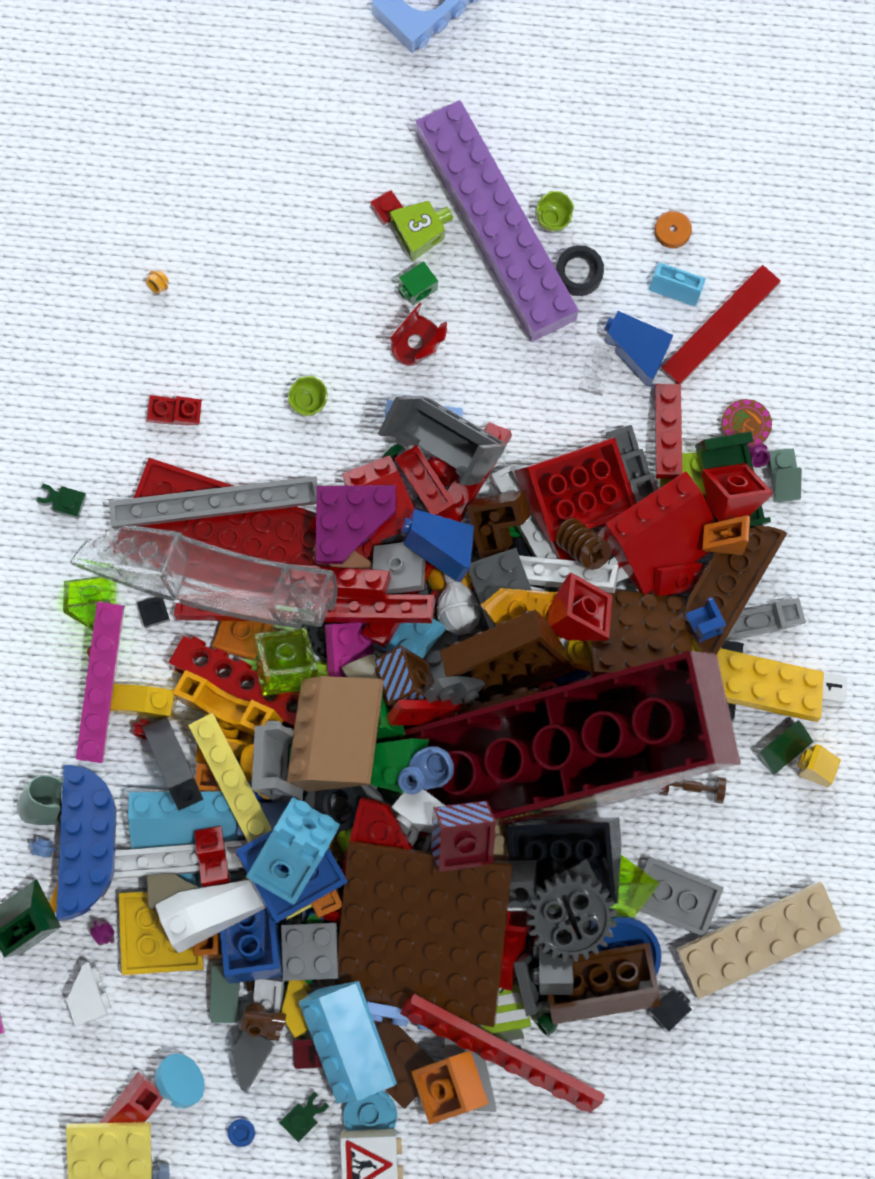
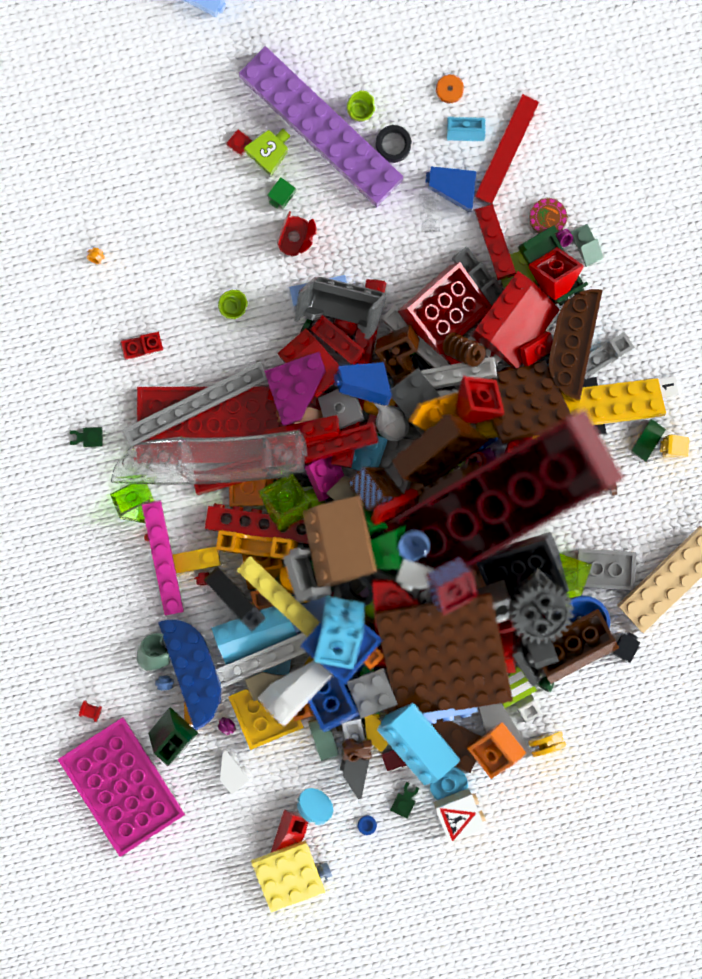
camera: 15 degrees left, 10 degrees up
(153, 611) = (180, 494): black tile -> none
(212, 856) = (284, 652): red slope -> none
(406, 785) = (401, 563): medium blue plate -> none
(456, 689) = (411, 484): dark grey slope -> none
(502, 1053) = (517, 716): red plate -> none
(522, 1103) = (547, 743): none -> yellow head
(706, 621) = (566, 375): blue panel -> none
(727, 536) = (561, 308): orange slope -> none

